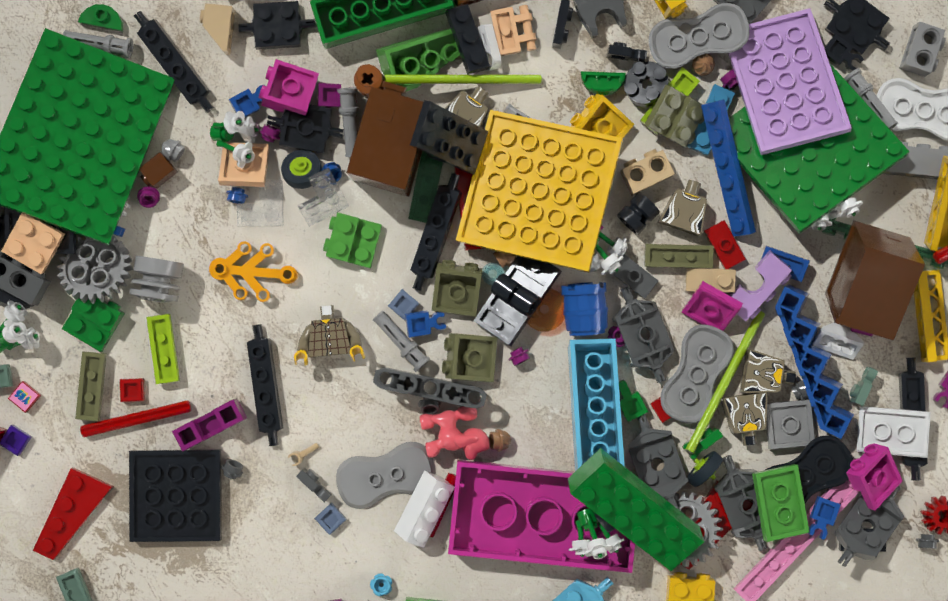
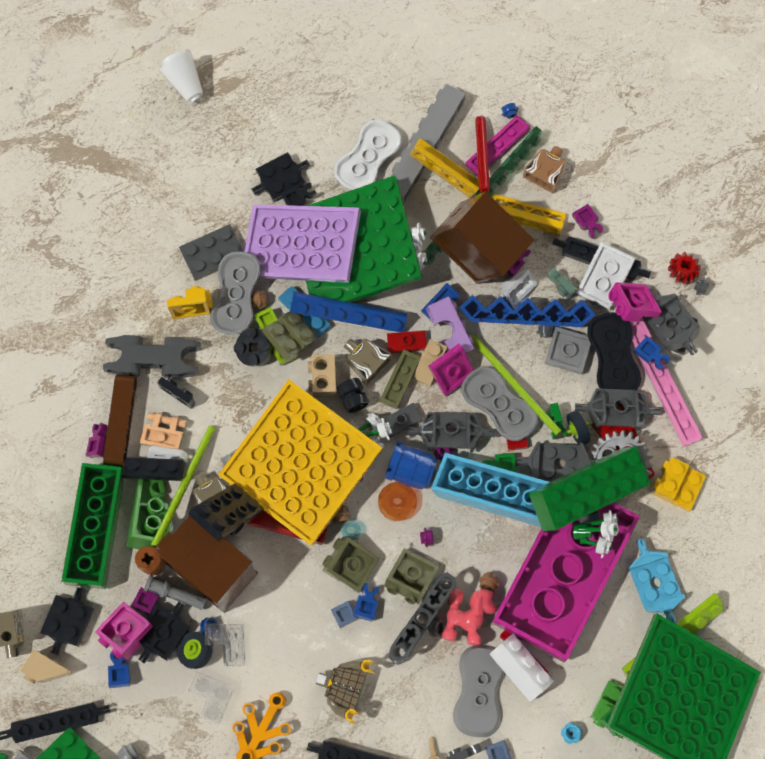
camera: 70 degrees left, 15 degrees down
(225, 132) = (131, 687): white plant -> none
(236, 195) = (191, 716): blue plate -> none
(252, 174) = (168, 697): light nougat plate -> none
(270, 133) = (153, 665): magenta plate -> none
(352, 240) = (272, 633): bright green plate -> none
(408, 349) = (349, 637): light grey pin -> none
(425, 188) = (258, 554): clear green slope -> none
(436, 231) = (296, 560): black plate -> none
(516, 297) = (378, 518): plate -> none
(602, 82) = (237, 380): green plate -> none
(602, 118) = (263, 391): yellow plate -> none
(622, 52) = (220, 356): black plate -> none
(729, 80) = (280, 285): magenta plate -> none
(746, 415) = (548, 379): dark tan torso -> none
(764, 373) = (520, 352): dark tan torso -> none
(780, 502) = (628, 380): bright green plate -> none
(865, 91) = (333, 189): light grey pin -> none
(918, 47) = (318, 141): light grey brick -> none

